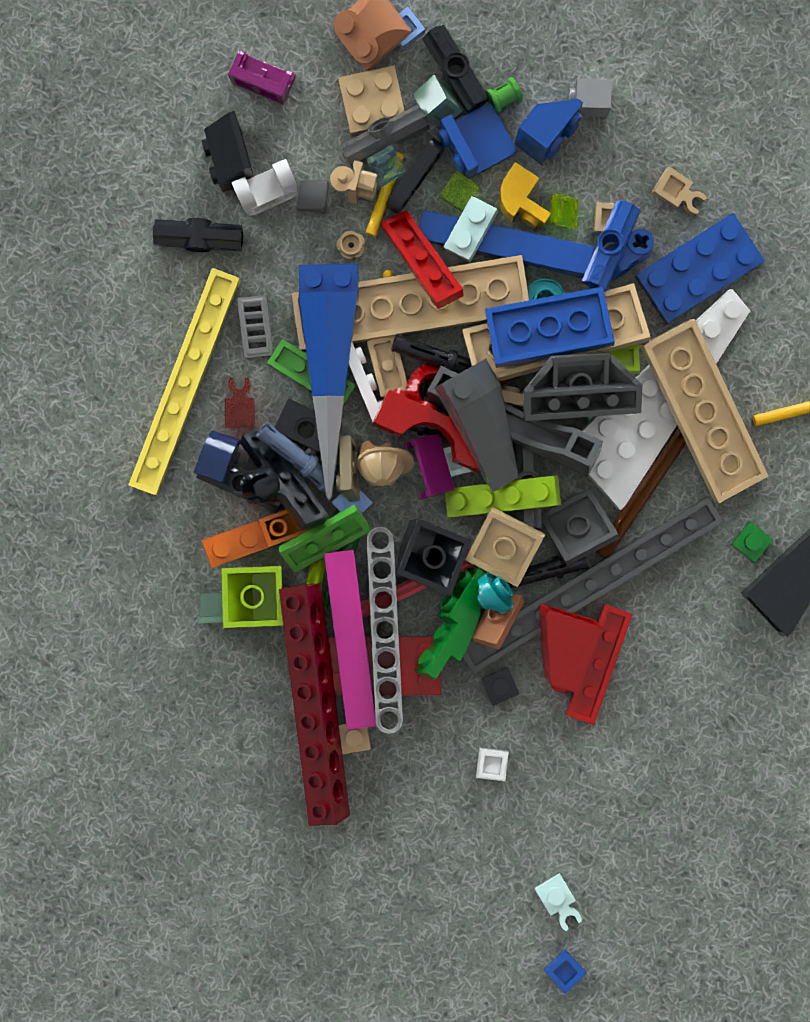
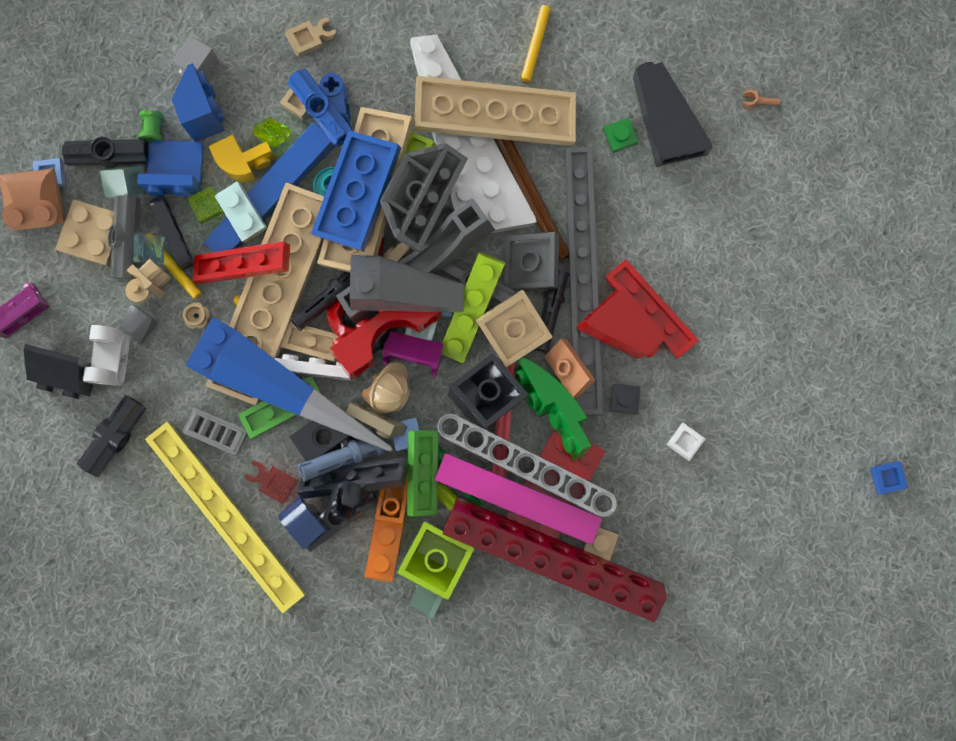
camera: 55 degrees left, 5 degrees down
(494, 593) = (547, 357): teal plate -> none
(557, 898) = (824, 450): light aqua plate -> none
(699, 268) = (380, 55): blue plate -> none

